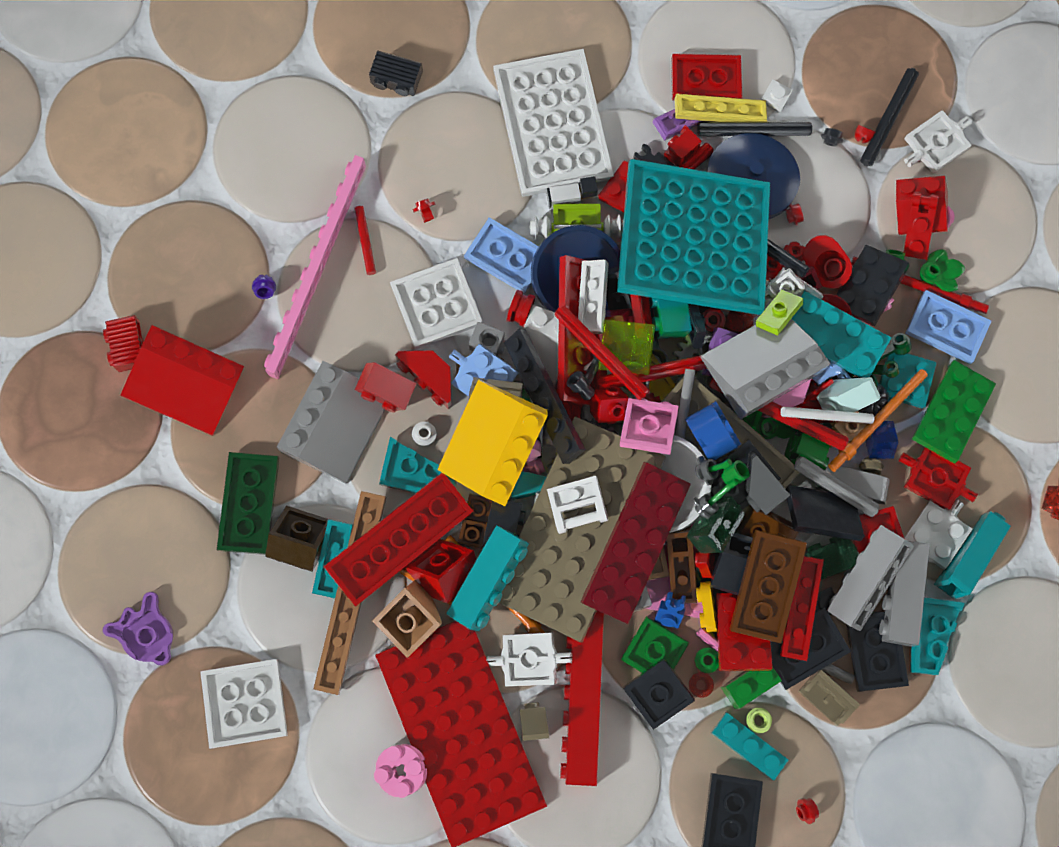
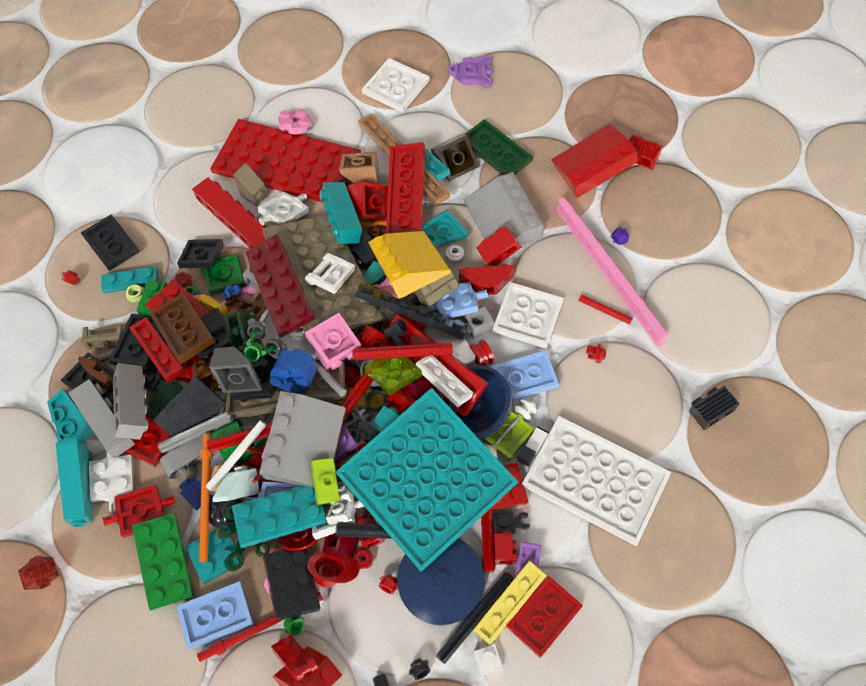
camera: 140 degrees right, 15 degrees down
(873, 659) = (96, 372): none -> reddish brown slope
(943, 269) = (252, 655): green plate -> none

